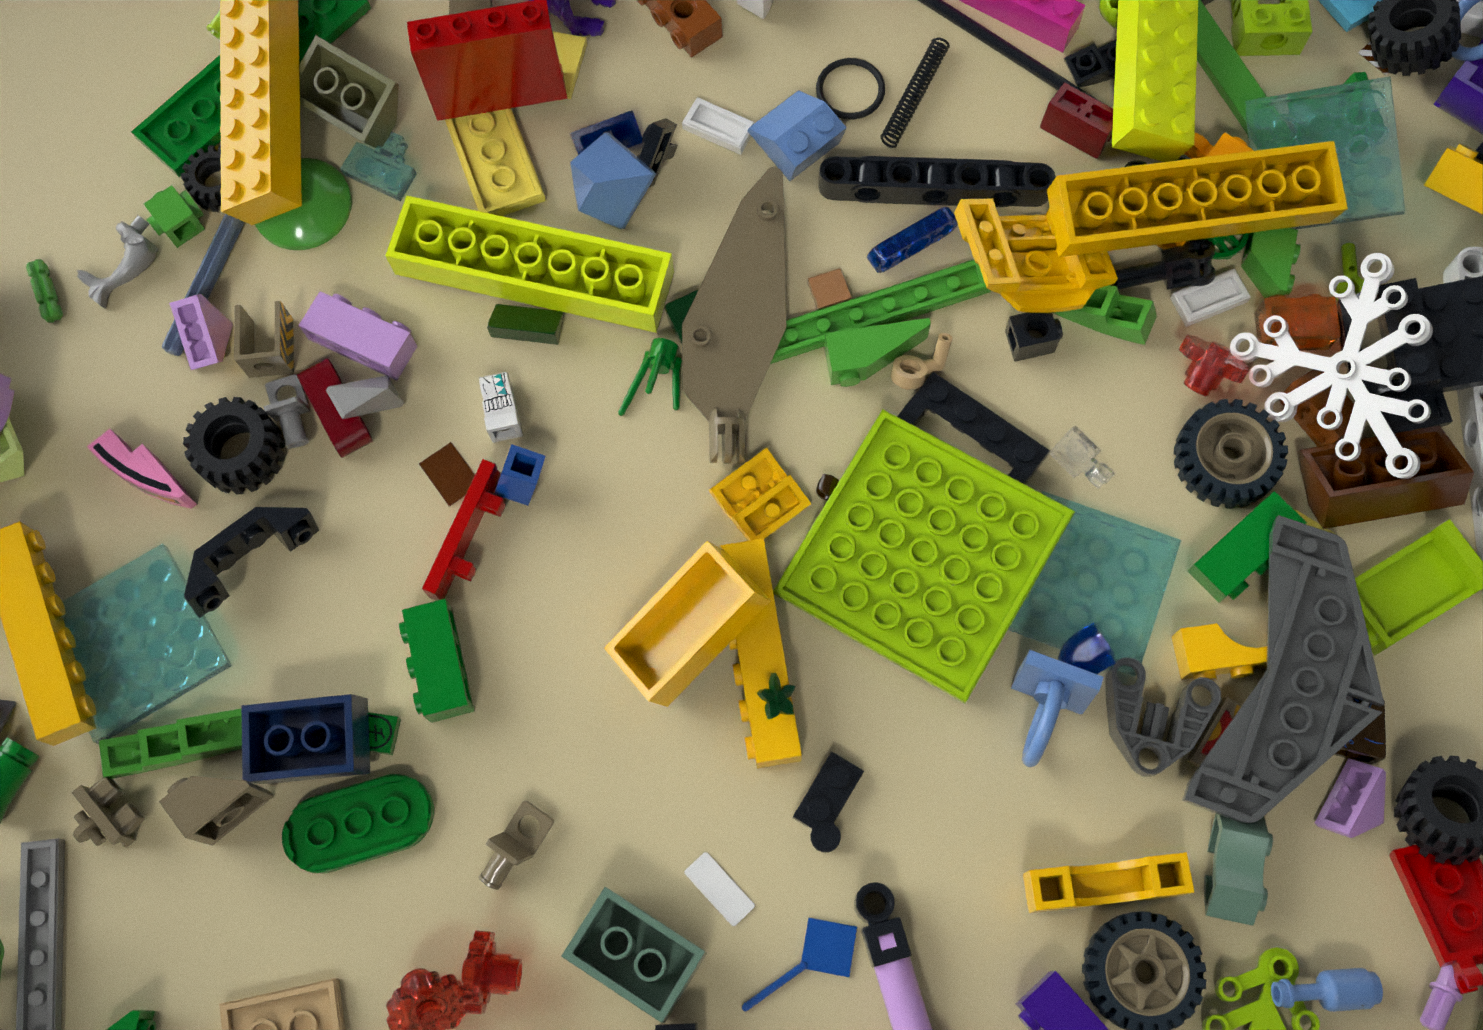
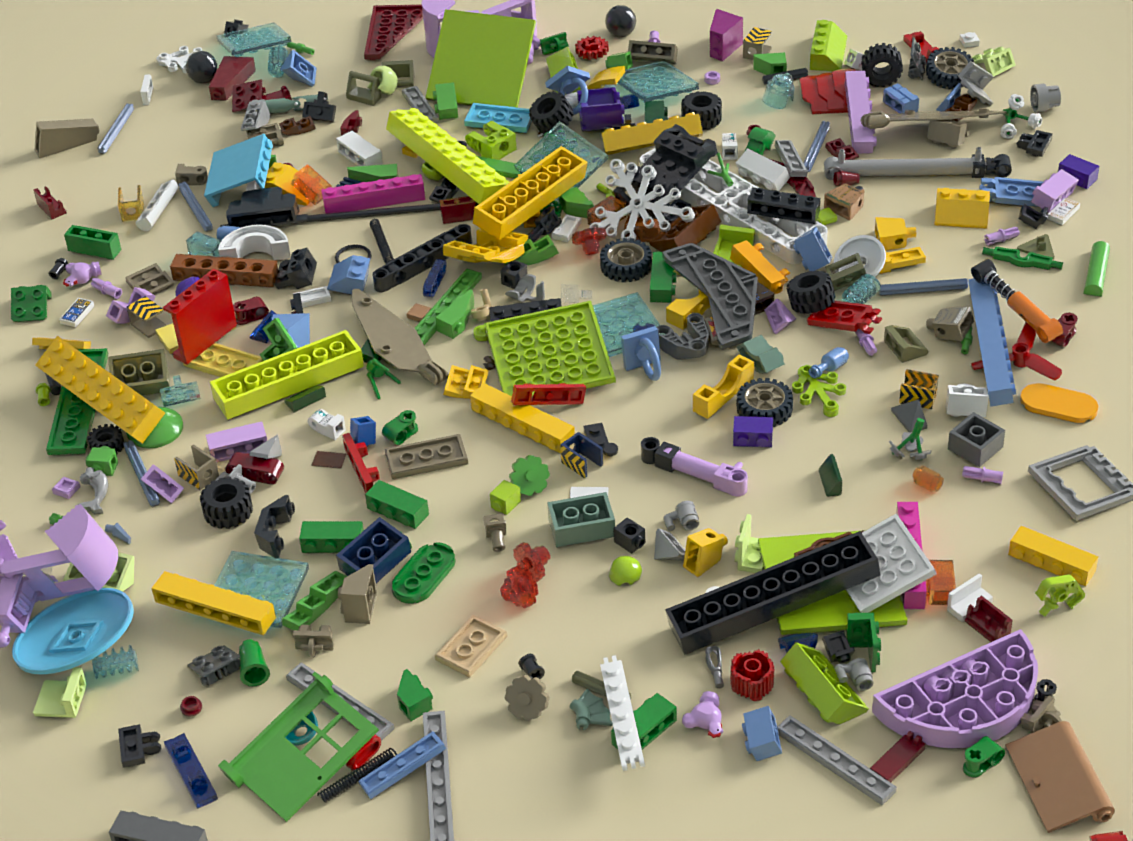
camera: 45 degrees left, 30 degrees down
(83, 367) = (118, 532): none -> sand blue bar
(101, 220) = (66, 487): none -> lavender tile
(140, 469) = (192, 539): bright pink slope -> none
(300, 642) = (328, 535): none -> green brick
(564, 203) = (279, 338): none -> bright green brick
(567, 592) = (426, 456): none -> dark tan tile
(576, 512) = (399, 428): none -> green piece
(584, 792) = (505, 497): none -> lime brick
(611, 85) = (250, 310): none -> dark red piece
(648, 790) = (529, 475): none -> bright green plant
(686, 624) = (486, 418): yellow piece -> none
(740, 57) = (297, 270): none -> black brick
(764, 786) = (584, 446): none -> dark blue piece
(777, 698) = (546, 414): dark green plant -> none
(826, 950) = (647, 480): blue piece -> none
(851, 665) = (548, 394): none -> red hinge
(871, 409) = (480, 333): none -> lime tile
(1030, 366) = (527, 282): none -> light grey helmet
(1419, 670) = (753, 260): none -> light orange brick

